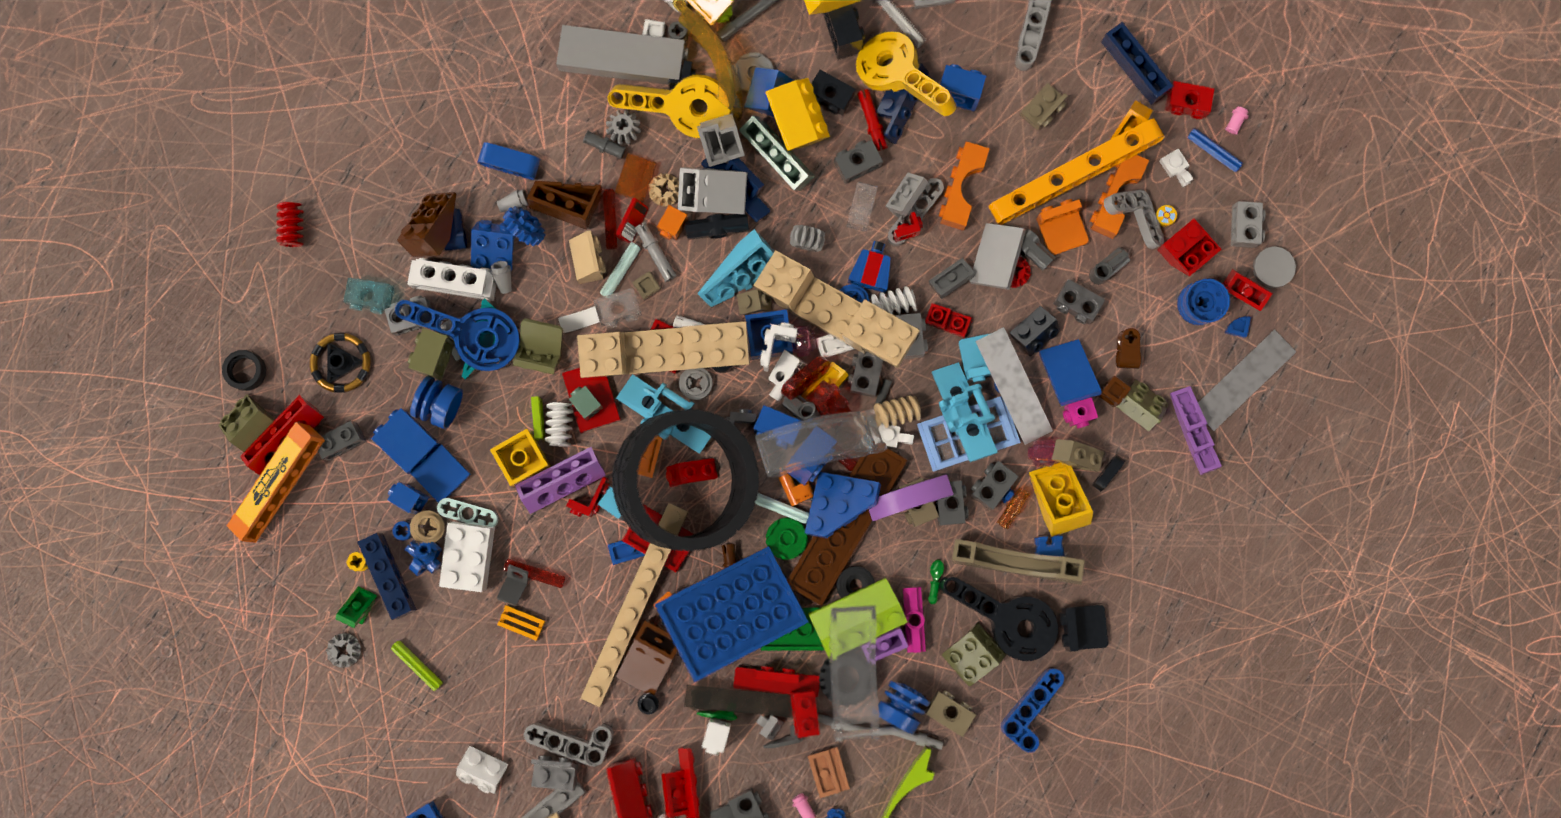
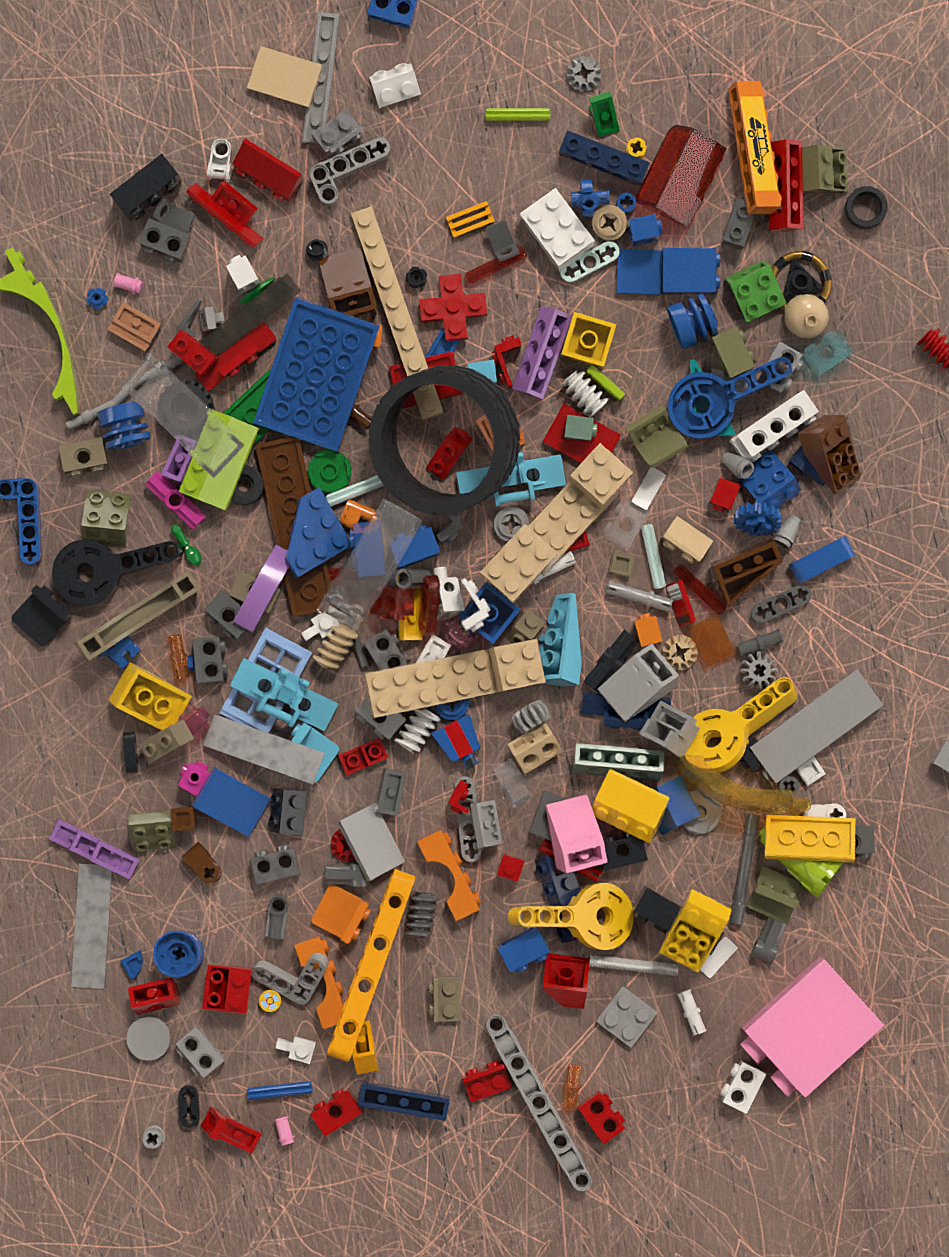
camera: 135 degrees right, 5 degrees up
(345, 514) = (680, 174): none -> clear red windscreen
(357, 333) = (806, 316): none -> tan cylinder
(372, 384) = (756, 290): none -> bright green bracket
(531, 265) = (724, 495): none -> red brick
(561, 150) = (768, 616): none -> dark grey beam
(591, 617) = (416, 271): none -> black plate
(592, 571) = (453, 307): none -> red plate
(824, 215) = (535, 747): none -> tan brick
(853, 128) = (575, 834): none -> bright pink slope
(917, 151) = (510, 867): none -> red brick
(949, 42) = (566, 979): none -> red slope
(1008, 174) = (421, 914): none -> dark grey piece
(1066, 28) = (486, 1081): none -> red bracket
(1276, 153) = (230, 1130): none -> red bracket
(1290, 199) = (183, 1106): none -> black beam
(1328, 201) = (154, 1129): none -> light grey bush

